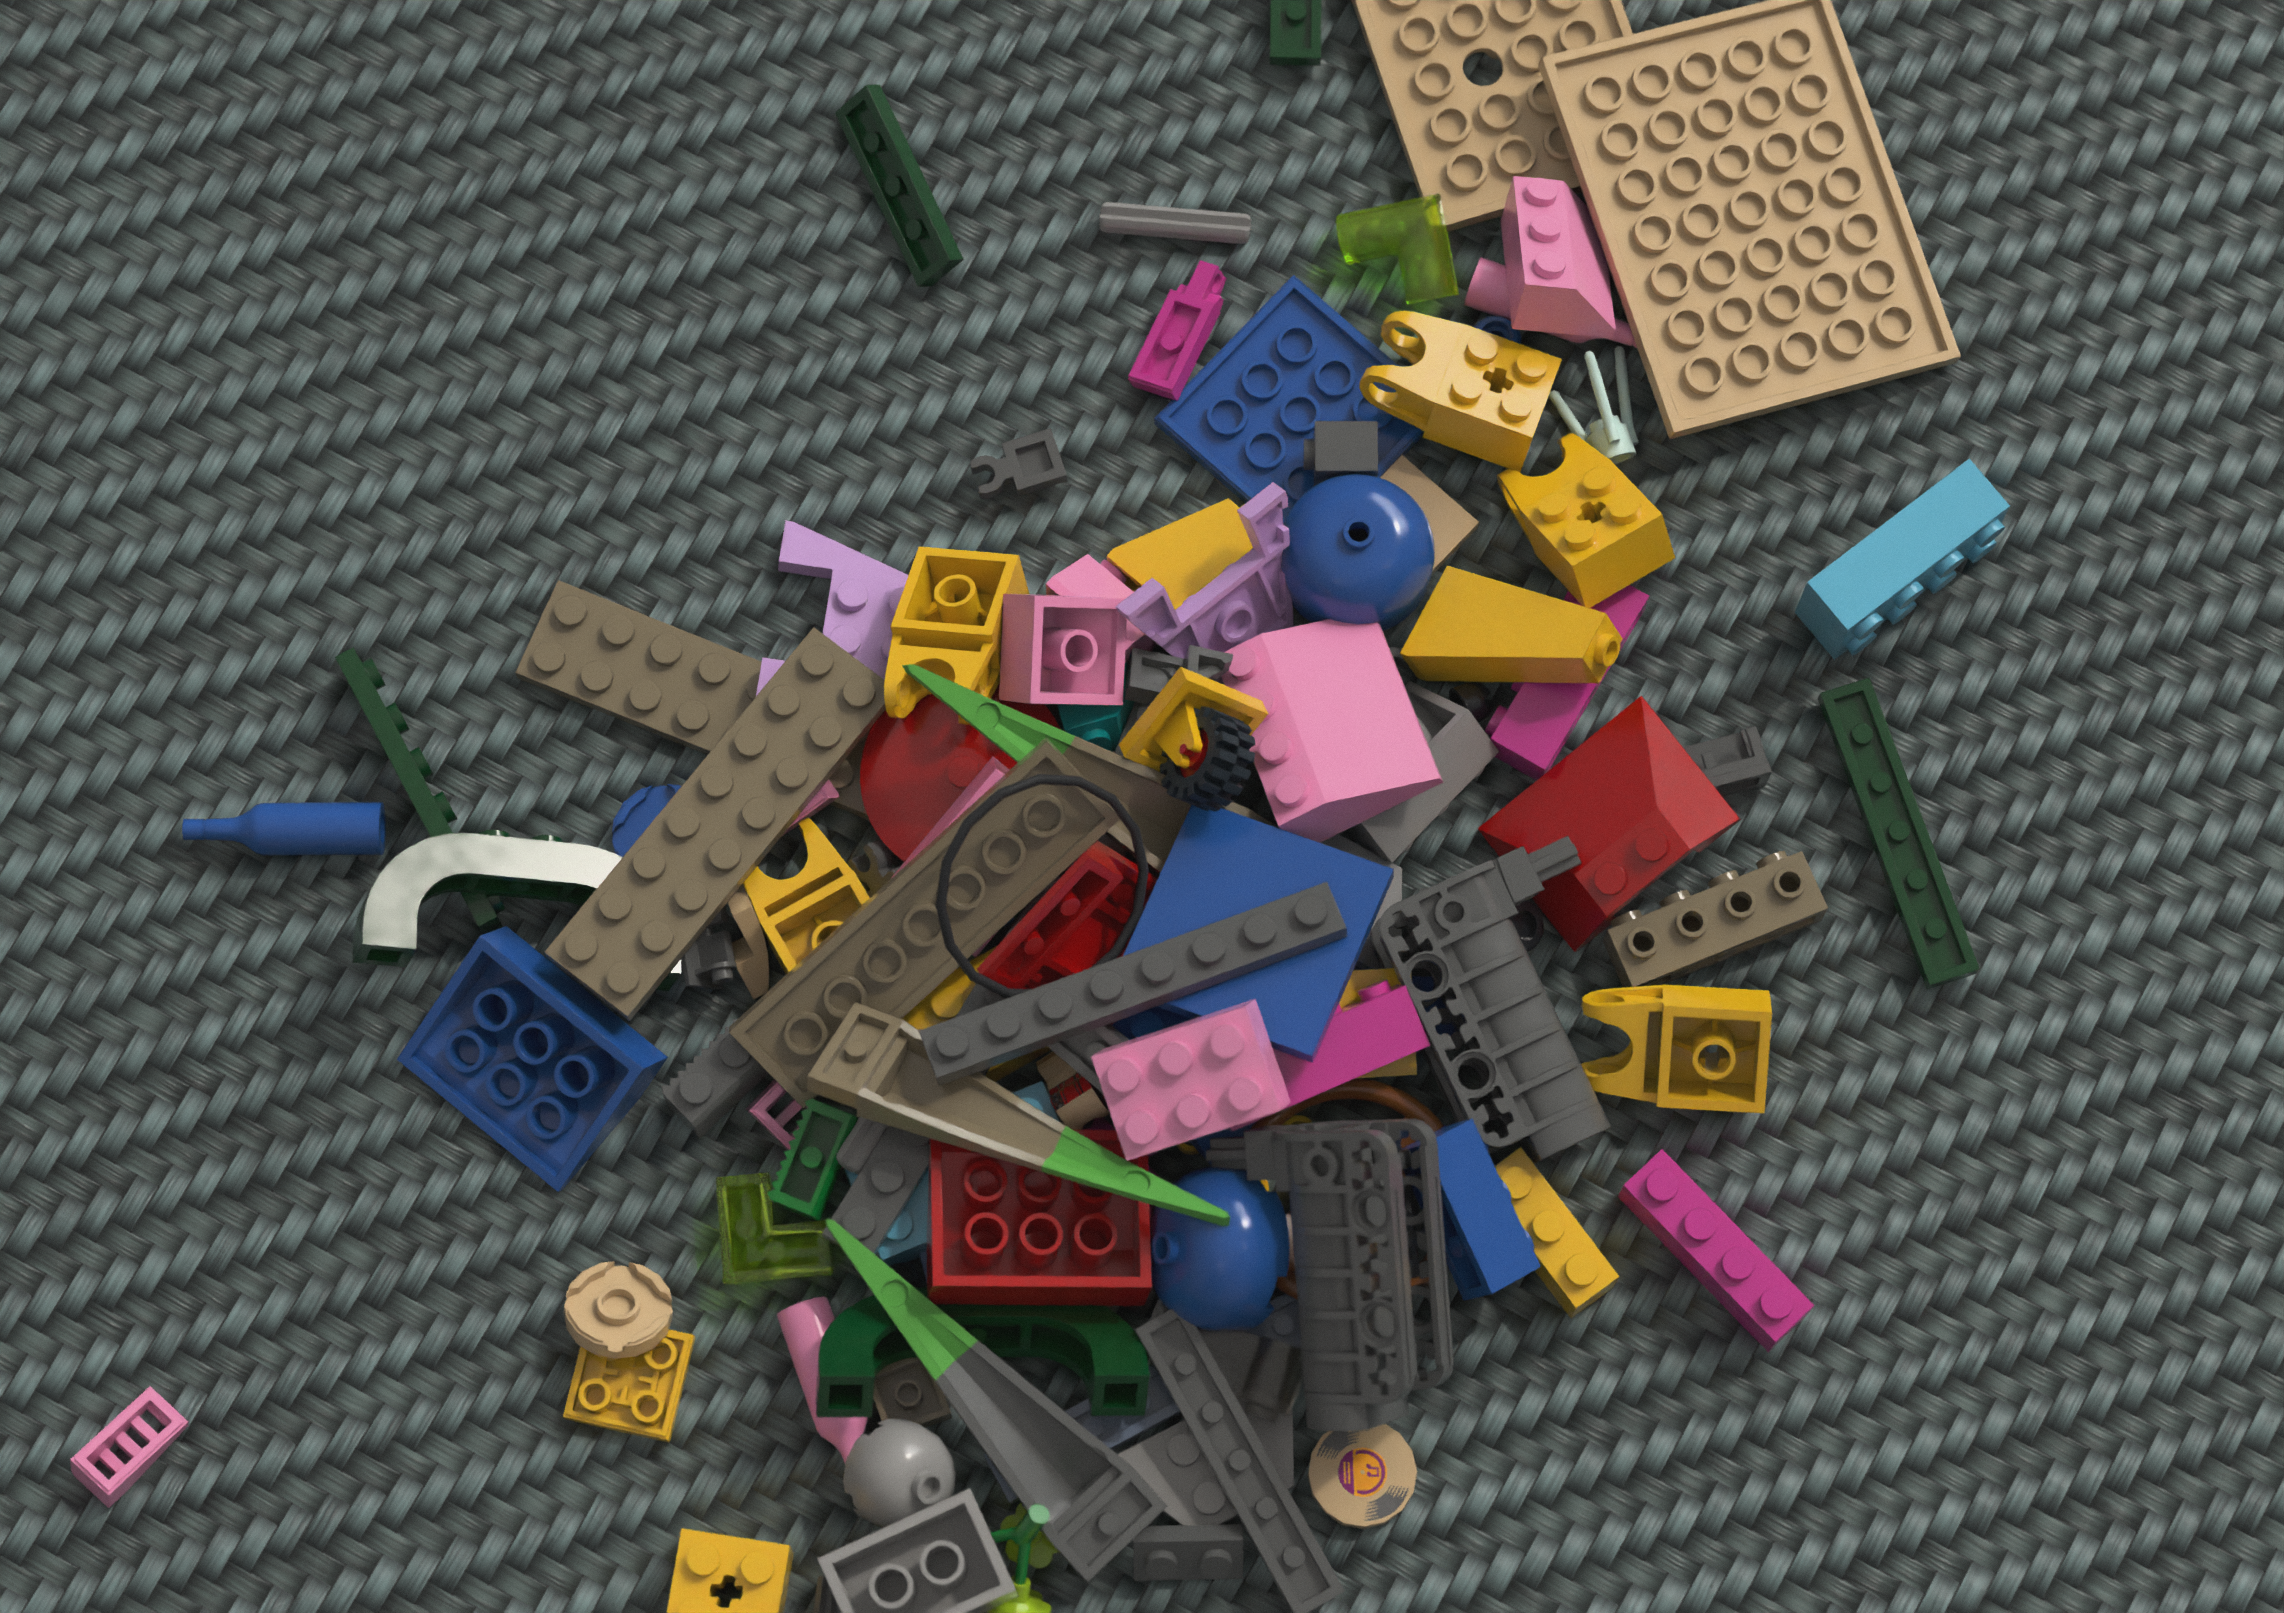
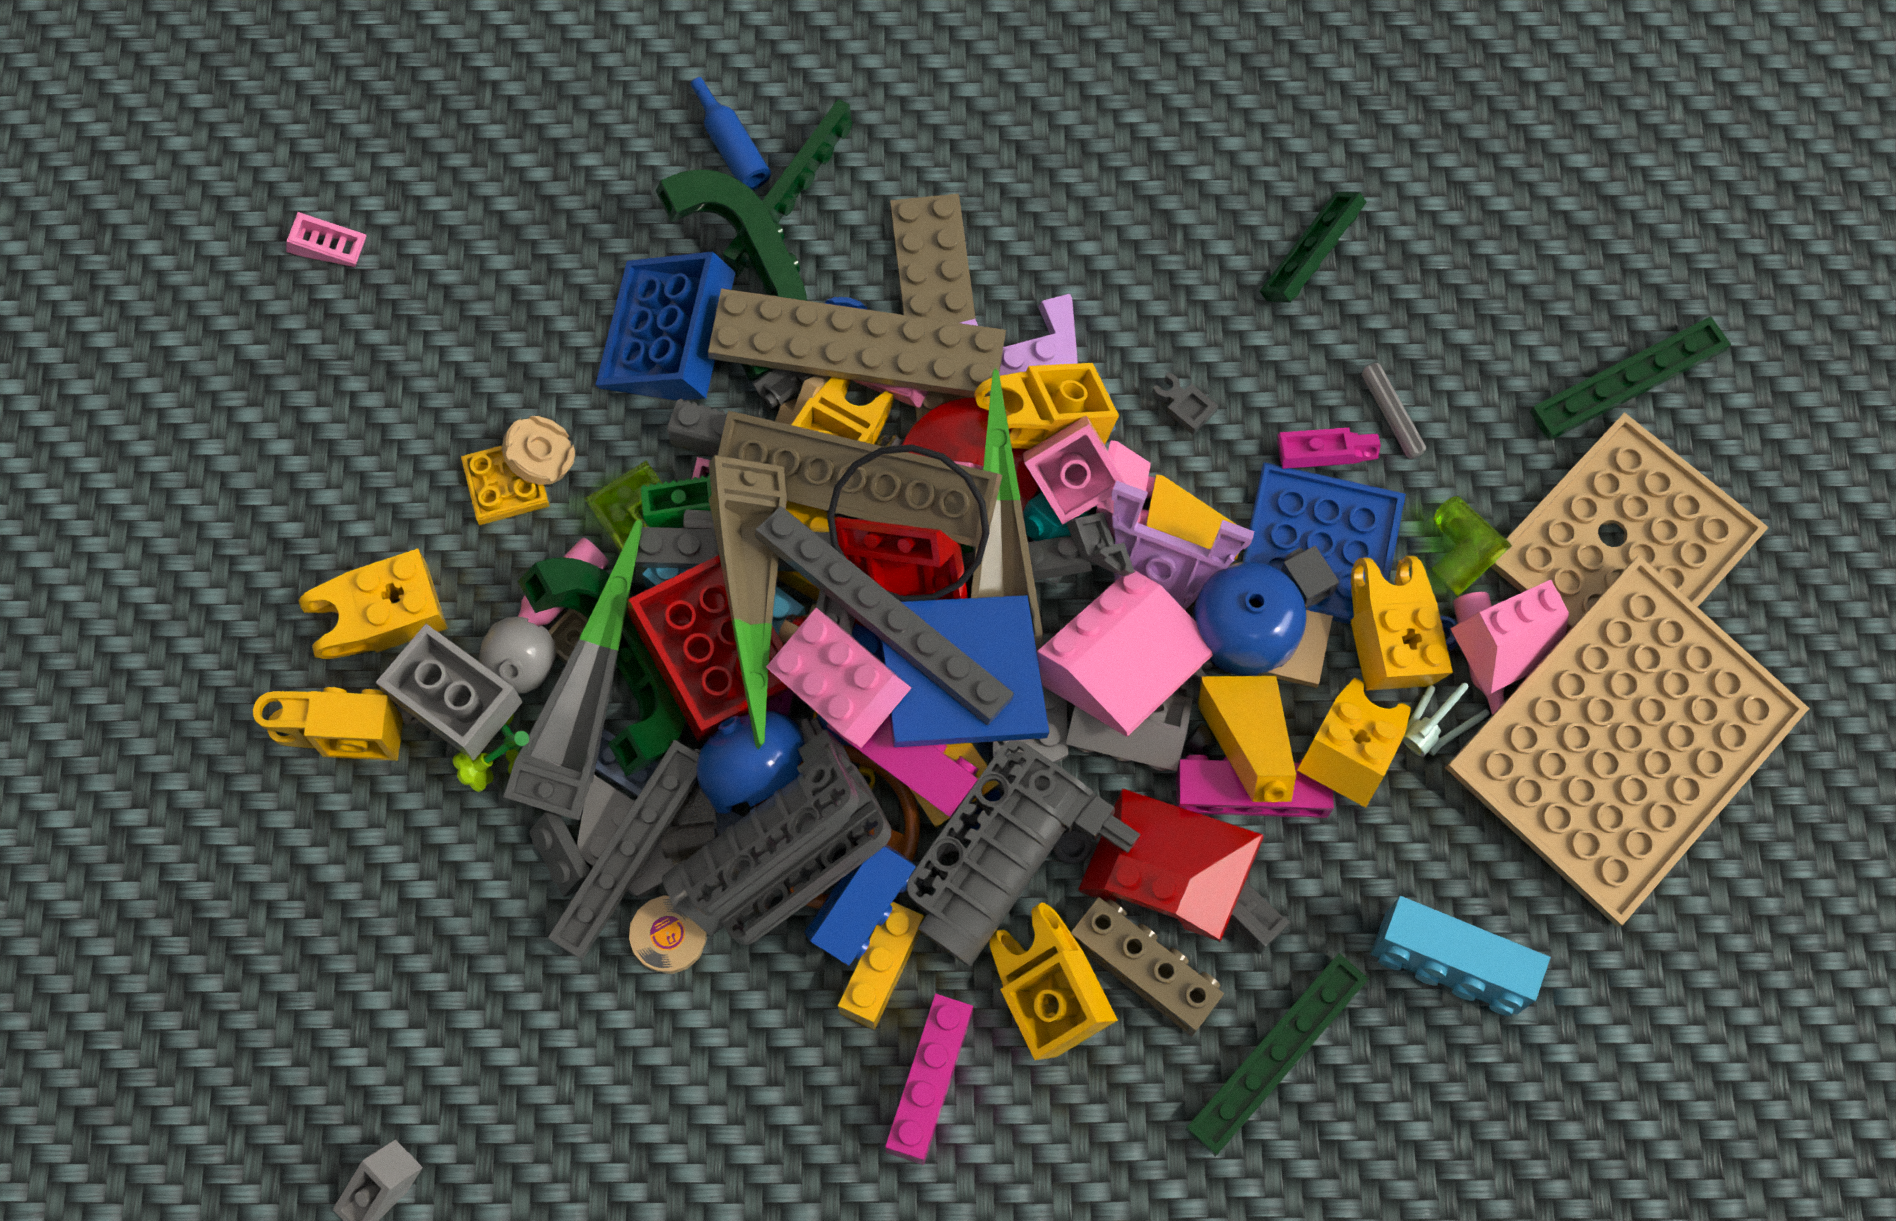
camera: 60 degrees right, 5 degrees down
(1197, 738) = (1063, 571): plate -> none

